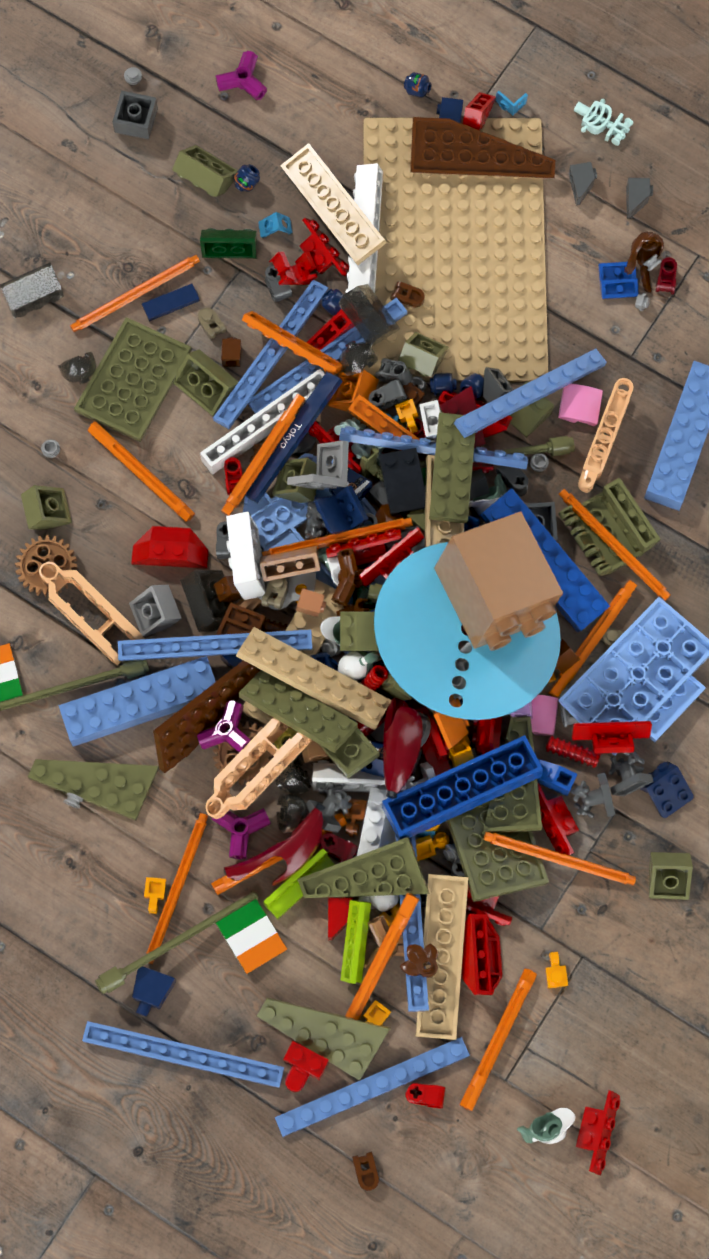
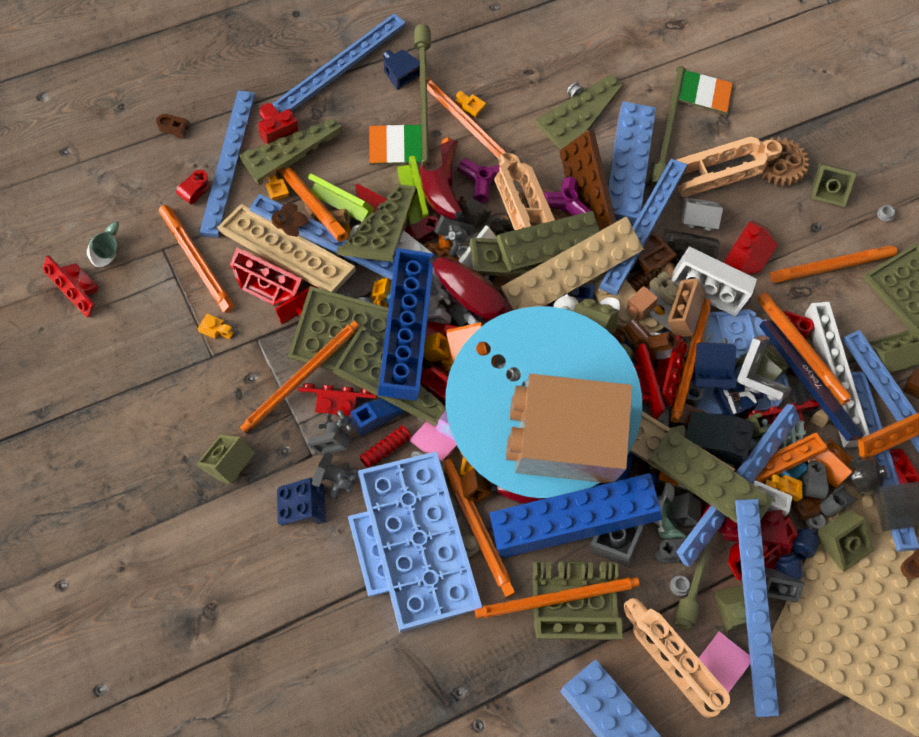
camera: 115 degrees right, 10 degrees down
(612, 736) = (371, 467): red bracket -> none

